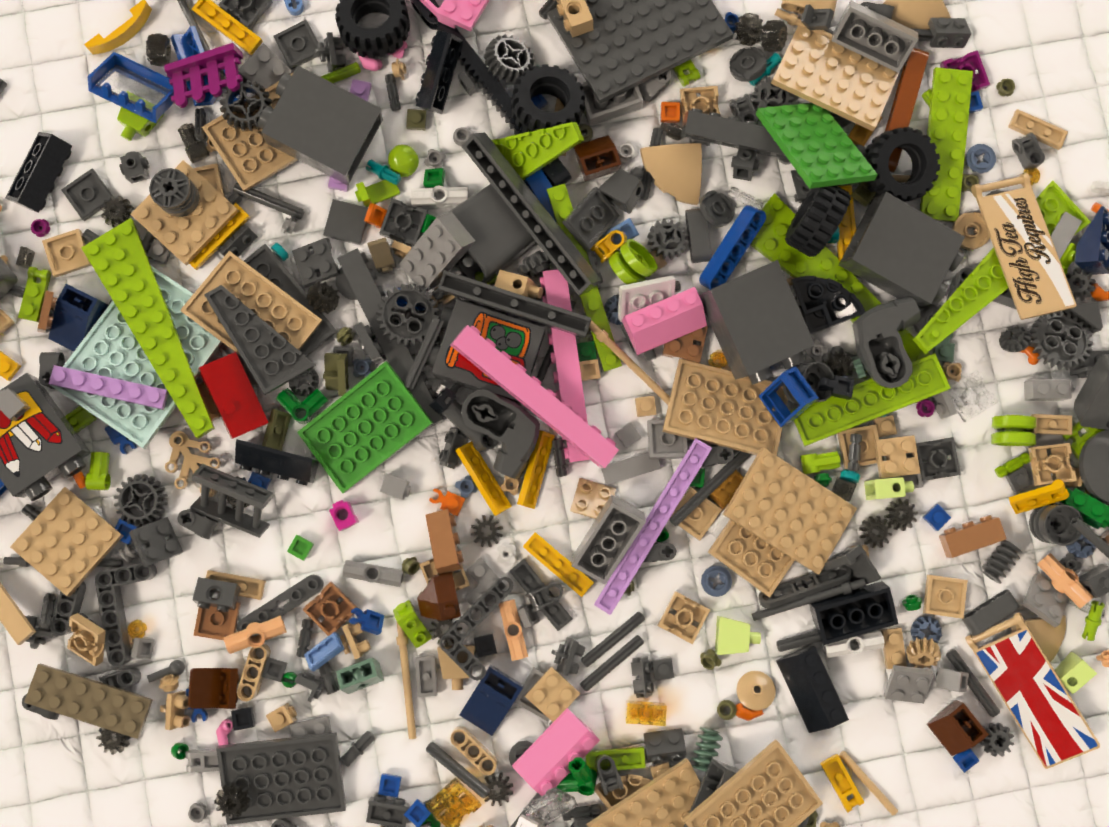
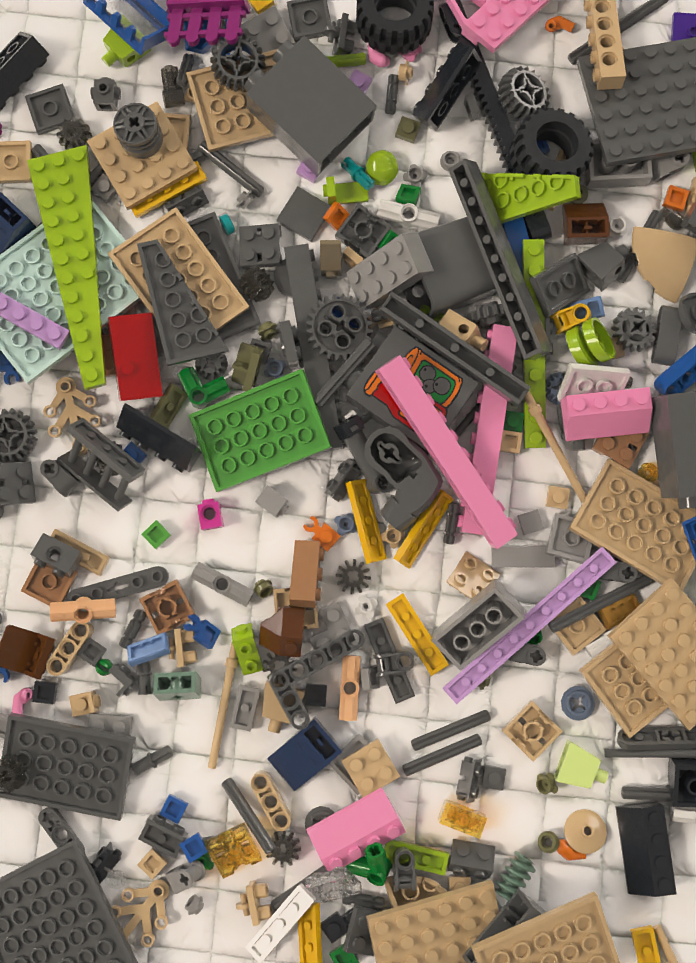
camera: 30 degrees right, 0 degrees up
(565, 656) = (396, 732): dark grey hips -> none

